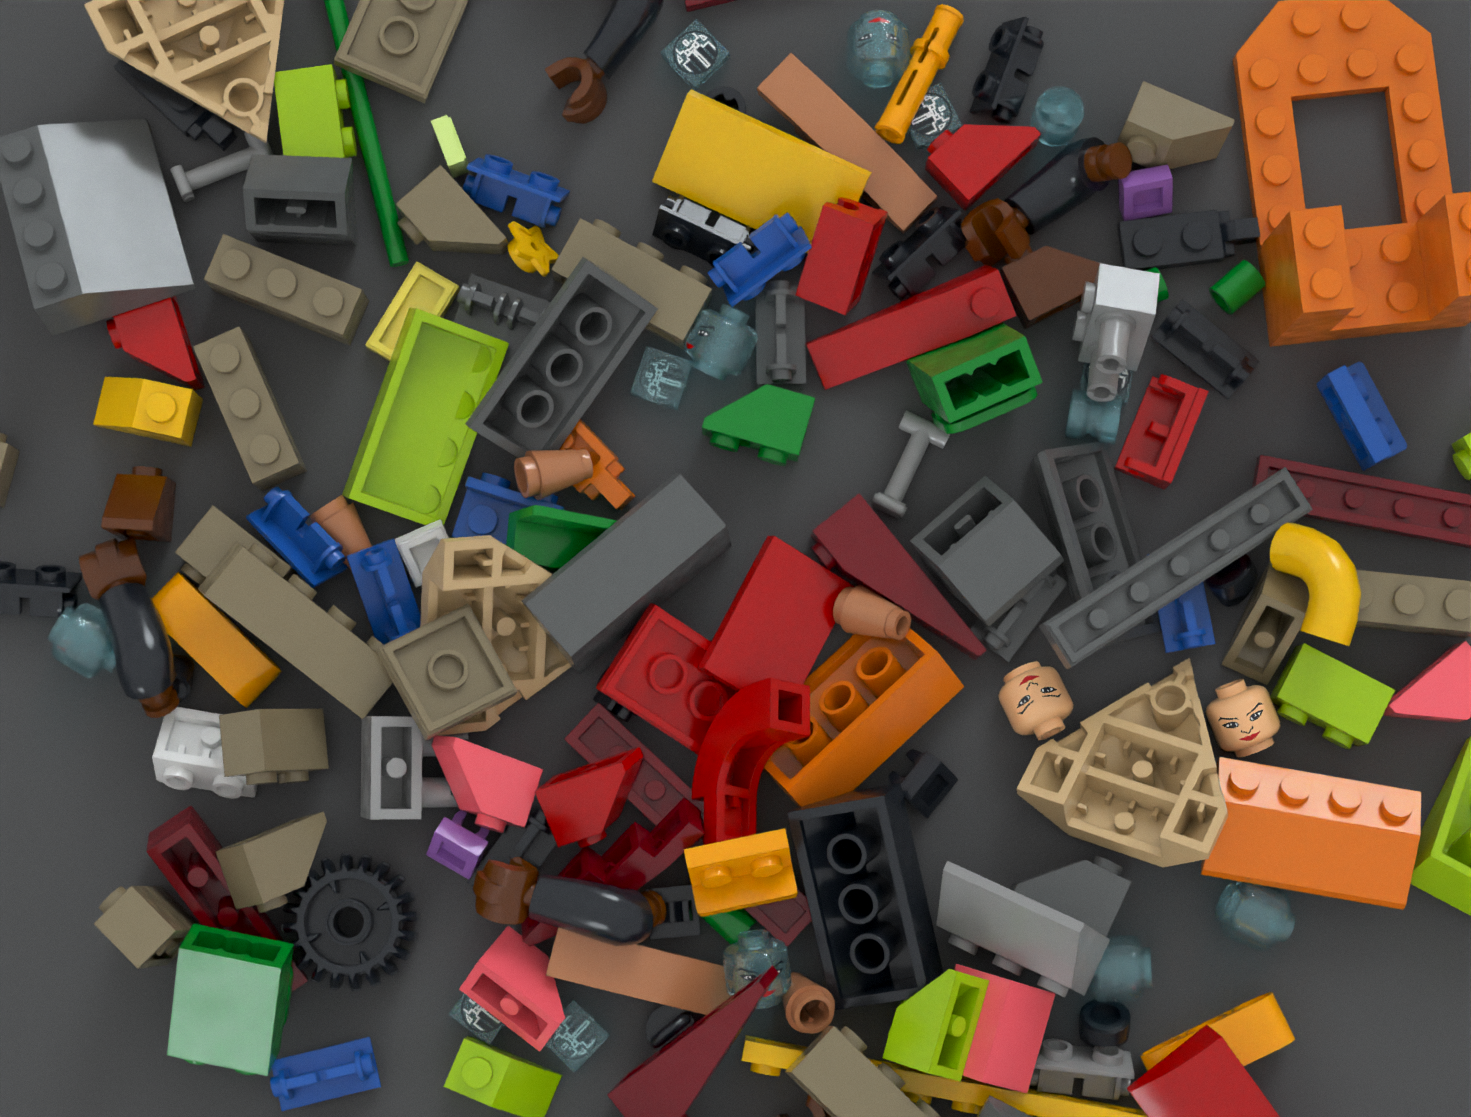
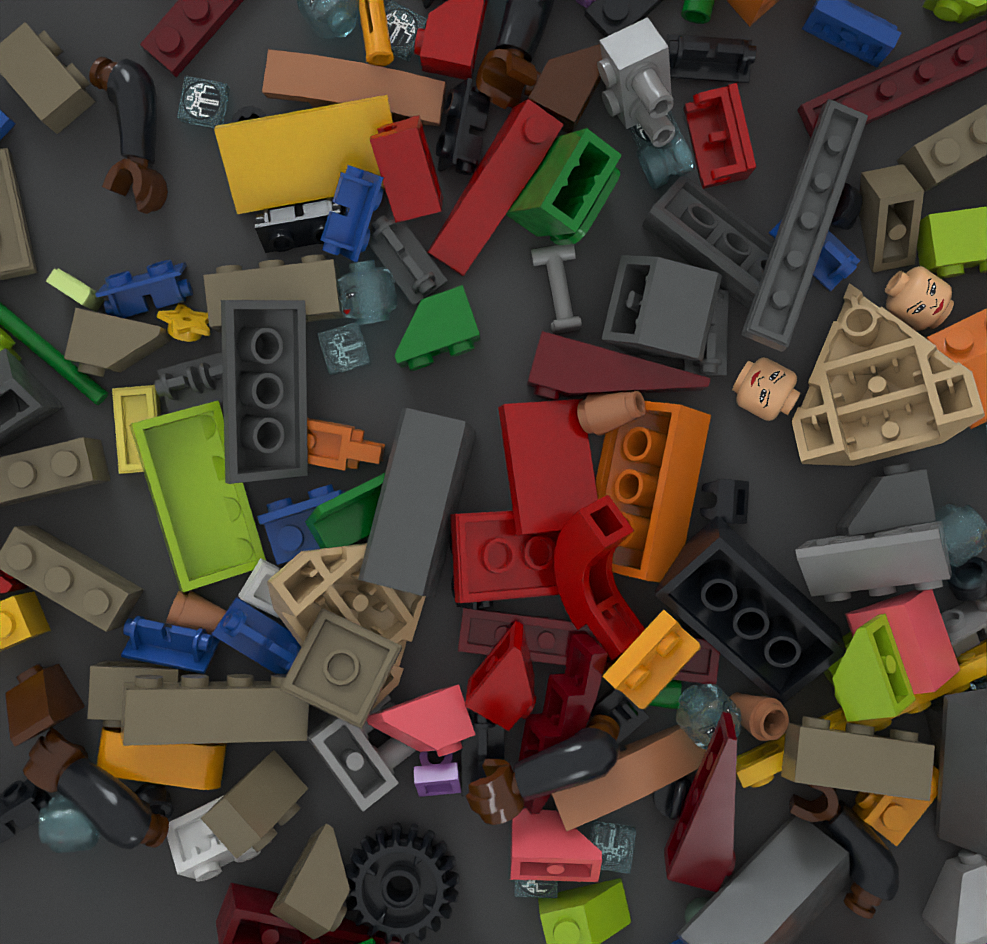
camera: 30 degrees left, 5 degrees up
(551, 471) = (312, 471): nougat cone -> none
(1329, 578) = (921, 151): yellow cylinder -> none

